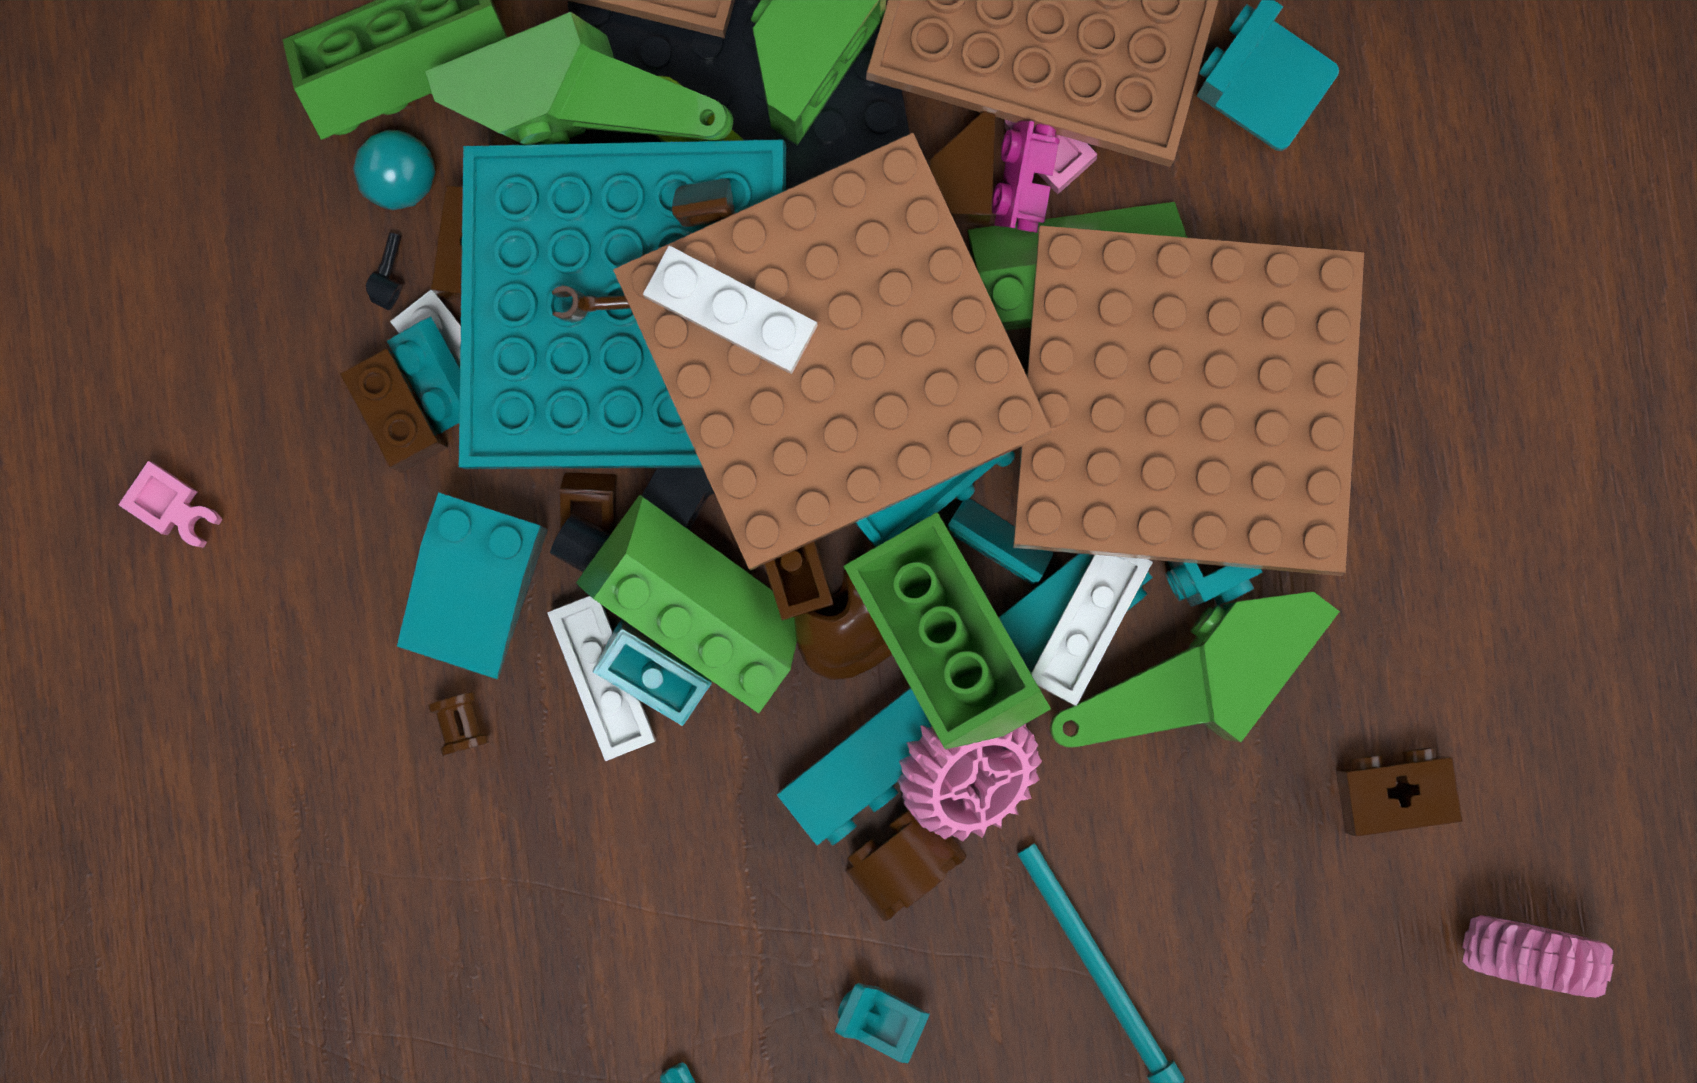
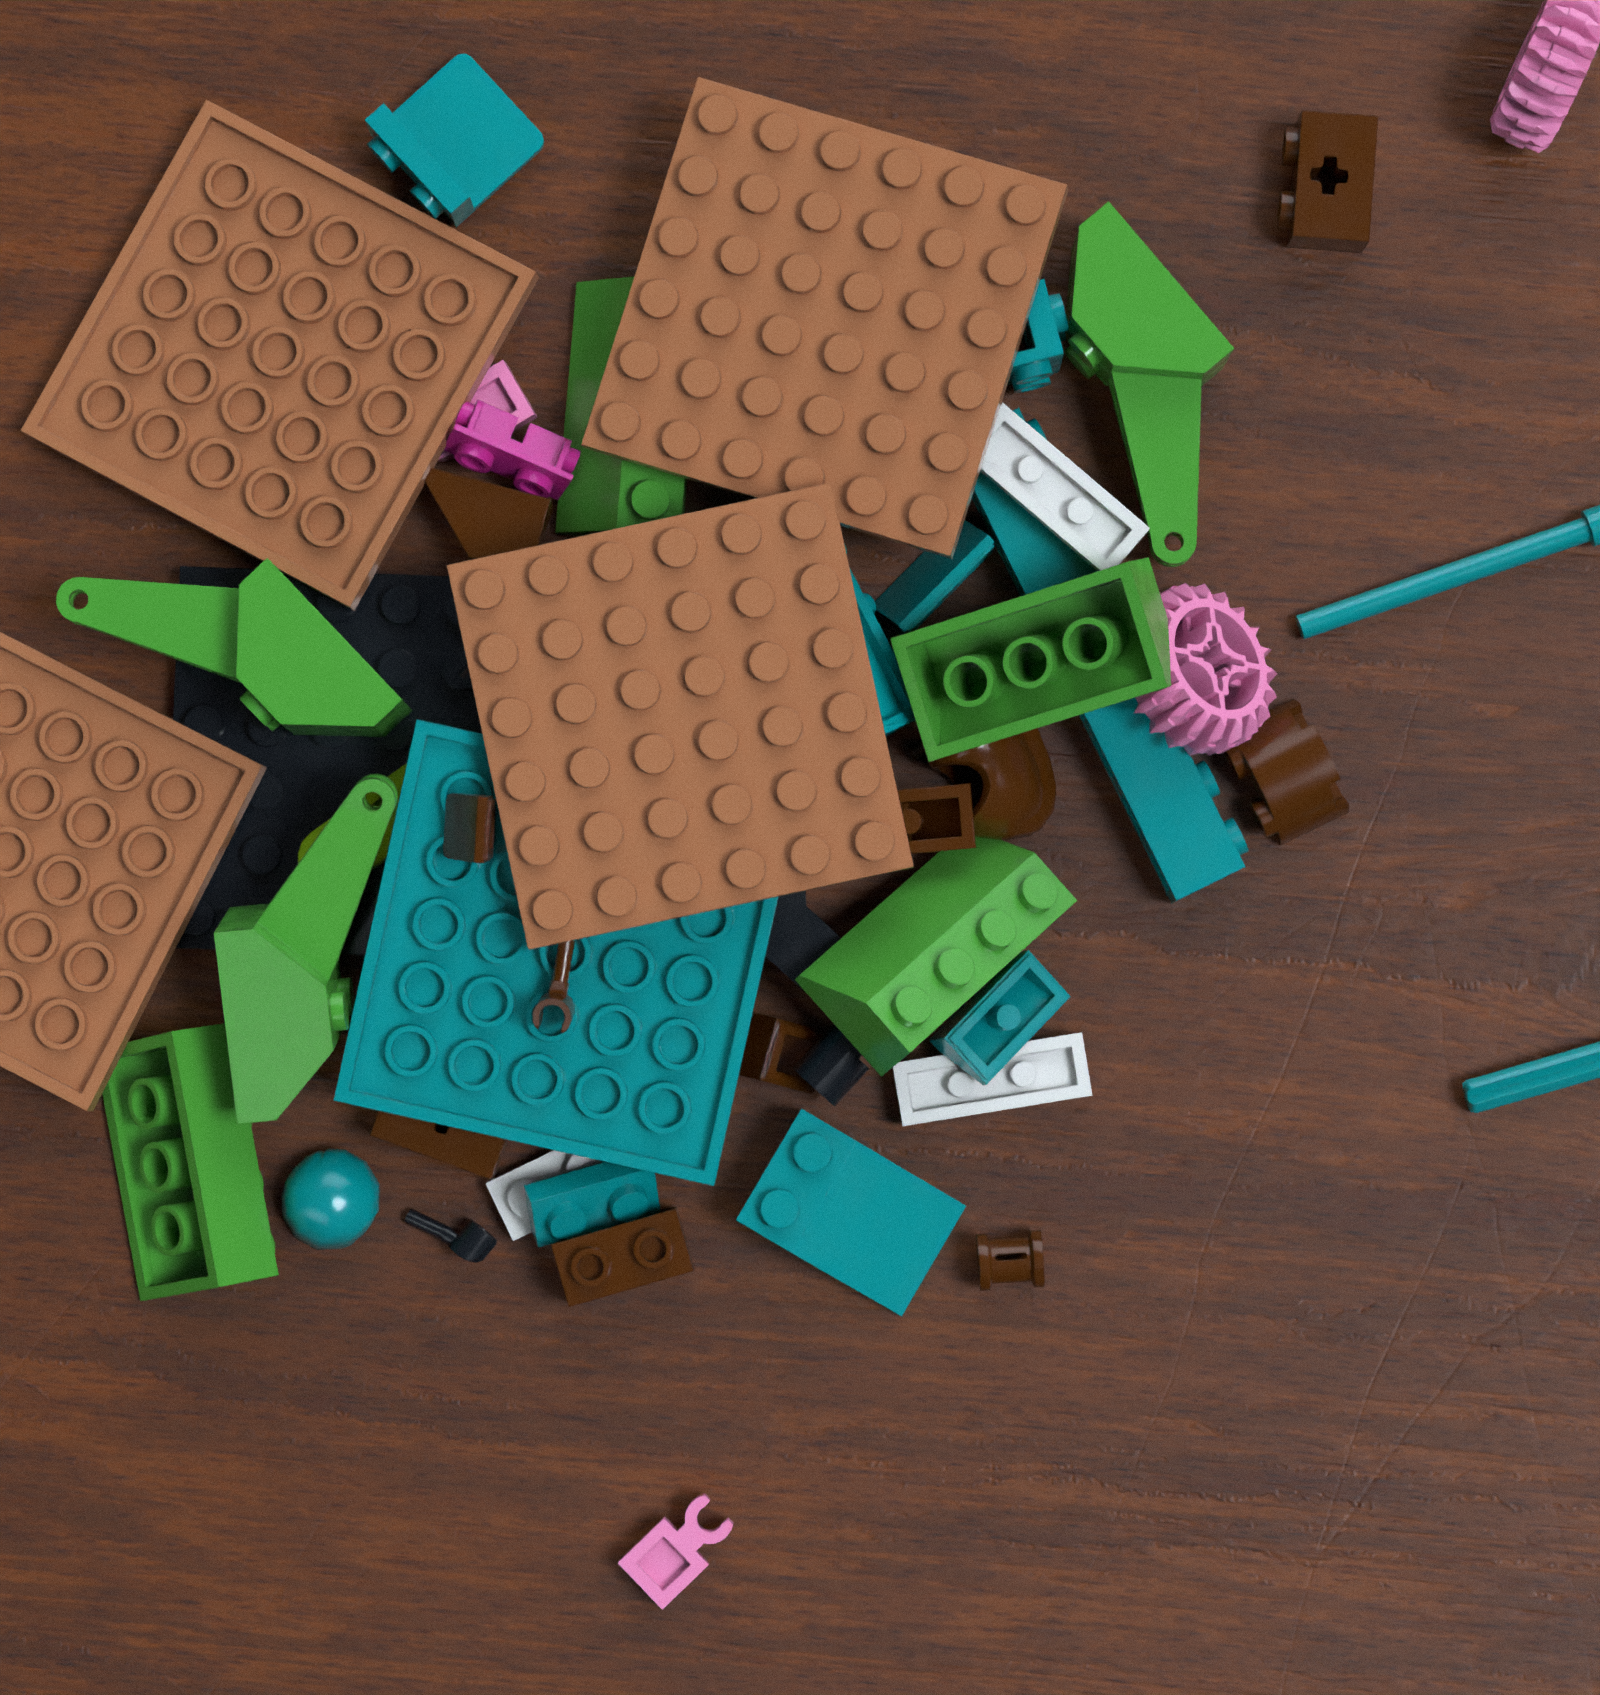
camera: 80 degrees left, 0 degrees up
(730, 309) = (609, 820): white plate -> none
(881, 1021) = (1464, 838): teal bracket -> none

